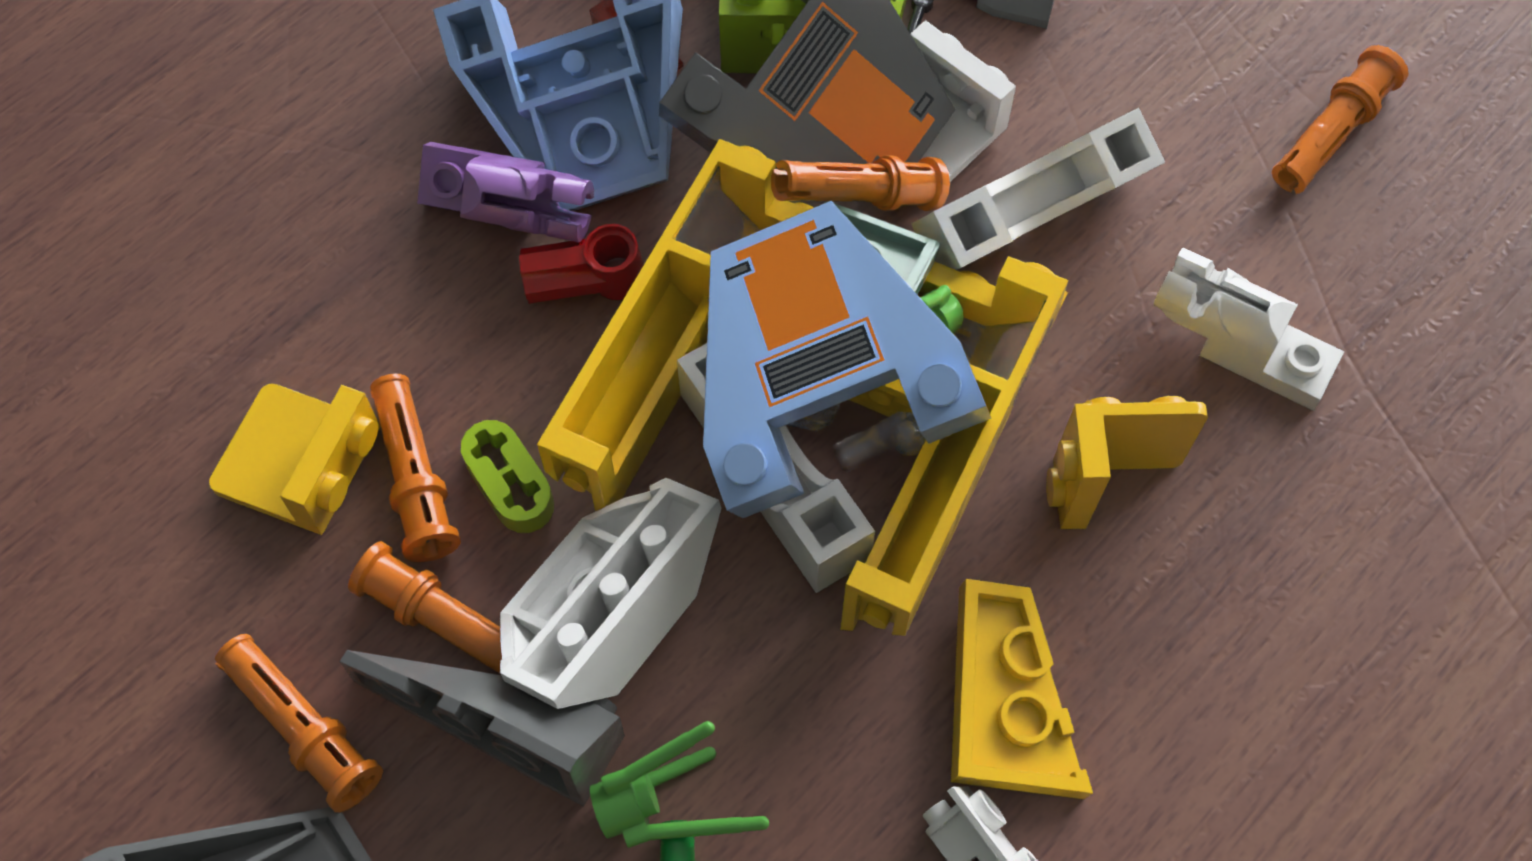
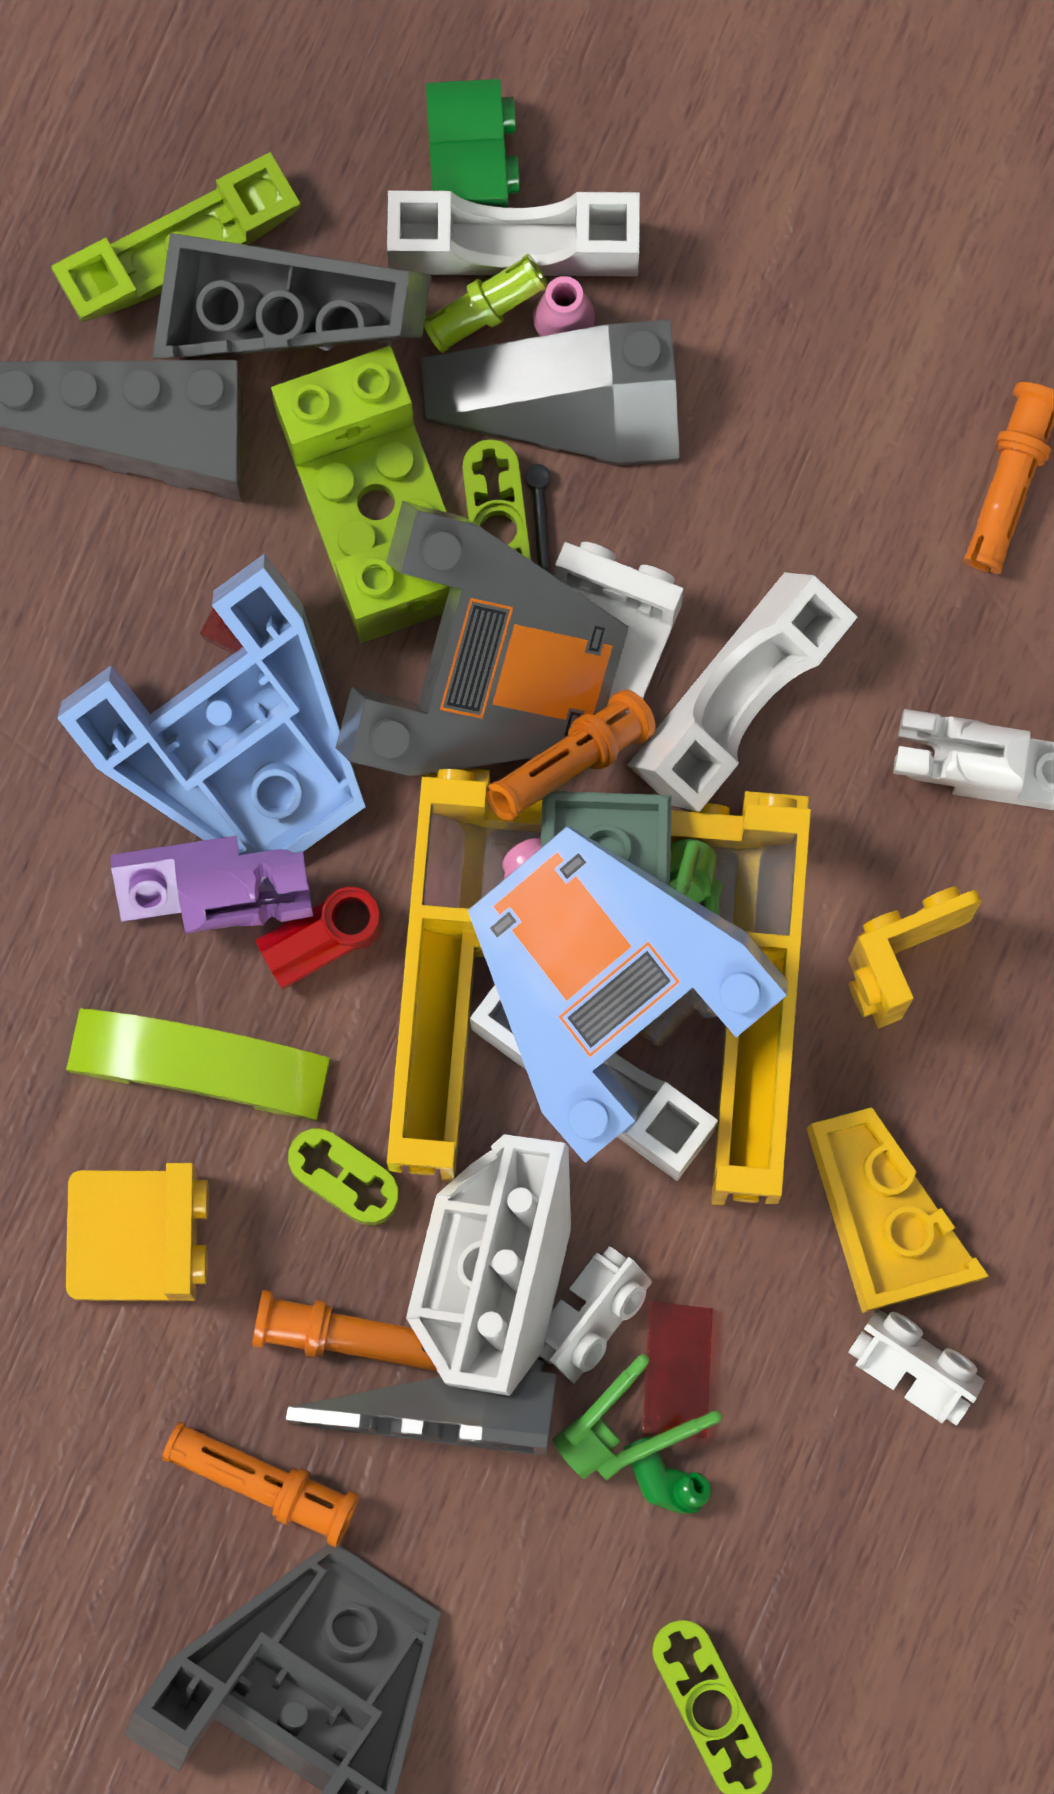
camera: 20 degrees left, 15 degrees up
(417, 491) = (269, 1227): orange pin -> none
(432, 334) = (198, 1062): none -> lime slope
(708, 671) = (612, 1293): none -> white hinge
(744, 764) = (678, 1366): none -> clear red slope

